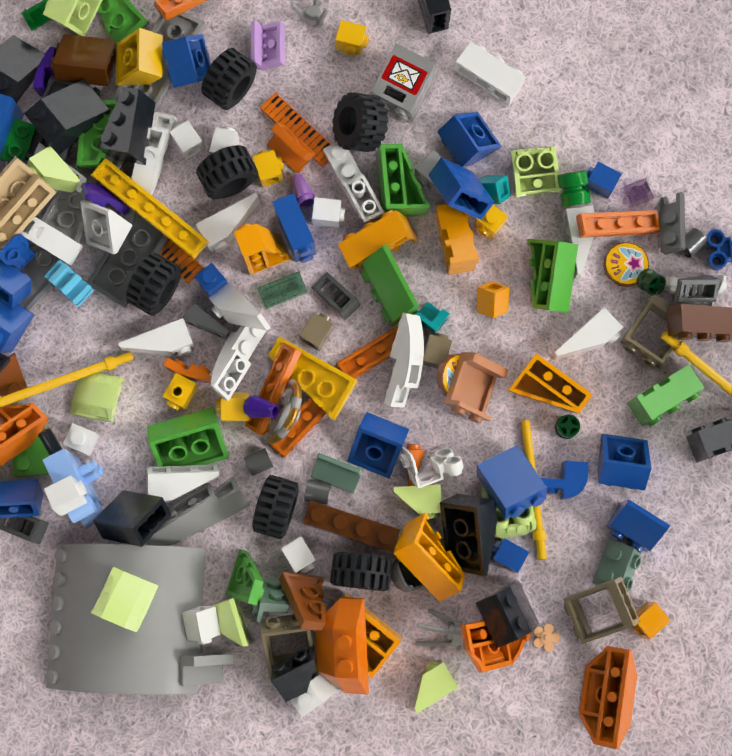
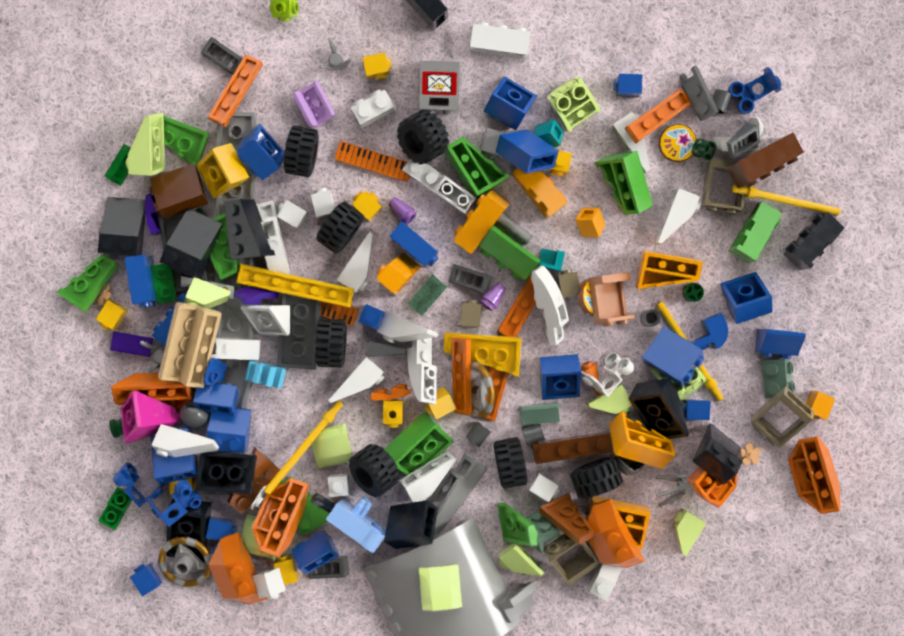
camera: 30 degrees left, 10 degrees up
(66, 495) = (360, 537): white brick -> none
(125, 439) = (374, 470): none -> black tyre
(201, 624) = (500, 573): white brick -> none
(260, 408) = (460, 397): dark purple cone -> none
(290, 148) = (375, 180): orange panel -> none
(293, 675) = (586, 575): black slope -> none
(325, 76) = (373, 108): none -> white brick
(328, 212) = (431, 217): white brick -> none
(350, 325) = (493, 297): none -> medium lavender cone
(409, 267) = (514, 229): none -> light grey pin
(515, 427) = (656, 314): none -> dark grey beam
(574, 188) = (609, 102): green wheel -> none
(638, 192) = (660, 80): clear purple tile -> none

